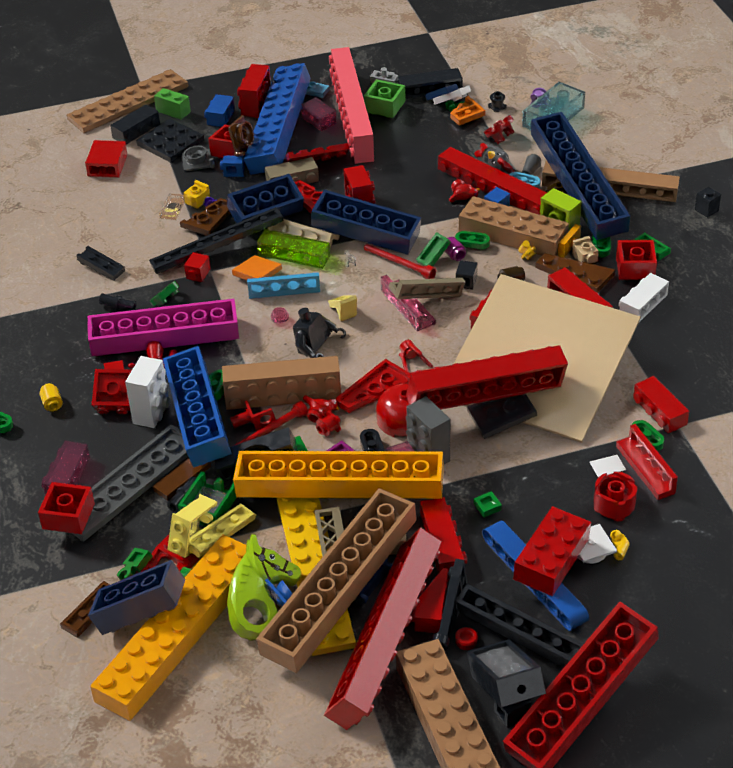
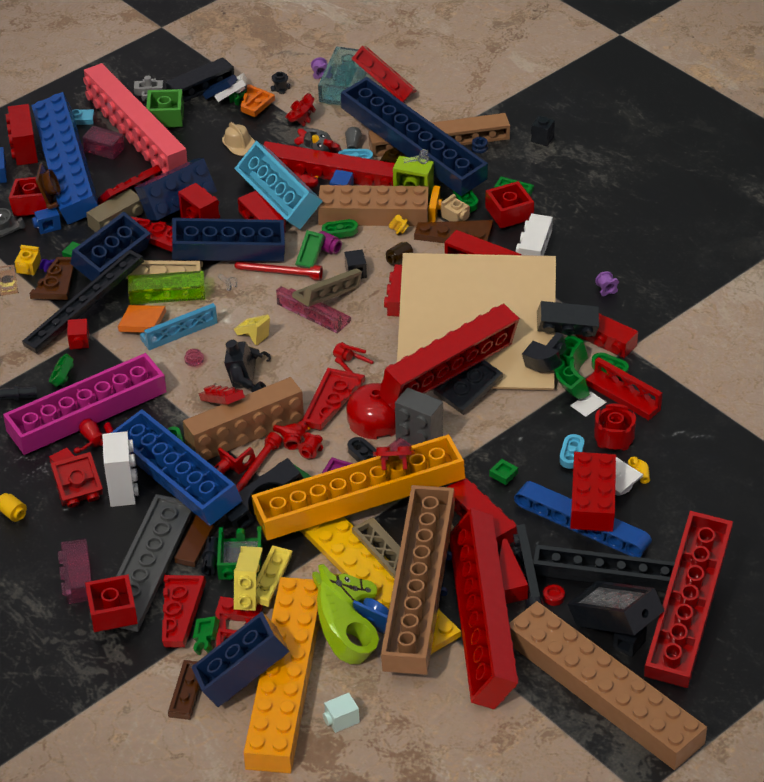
camera: 25 degrees left, 0 degrees up
(132, 530) = (180, 606): none -> red wing
(203, 680) = (341, 712): none -> light aqua brick
(273, 353) = (221, 394): none -> red plate
(330, 166) = (160, 194): none -> dark blue brick
(370, 450) = (385, 454): none -> red plate
(410, 202) = (256, 207): none -> red brick
(433, 141) = (237, 139): none -> tan piece
(436, 187) = (278, 185): none -> medium azure brick
(562, 499) = (571, 444): none -> medium azure plate
(570, 195) = (422, 158): none -> clear hand
(582, 408) = (545, 357): none -> black brick
(588, 114) = (383, 73): none -> red fence
(605, 424) = (568, 371): none -> green brick
(622, 378) = (567, 318): none -> black brick
(643, 199) = (479, 145): none -> dark blue bush
(688, 357) = (607, 283): none -> medium lavender brick

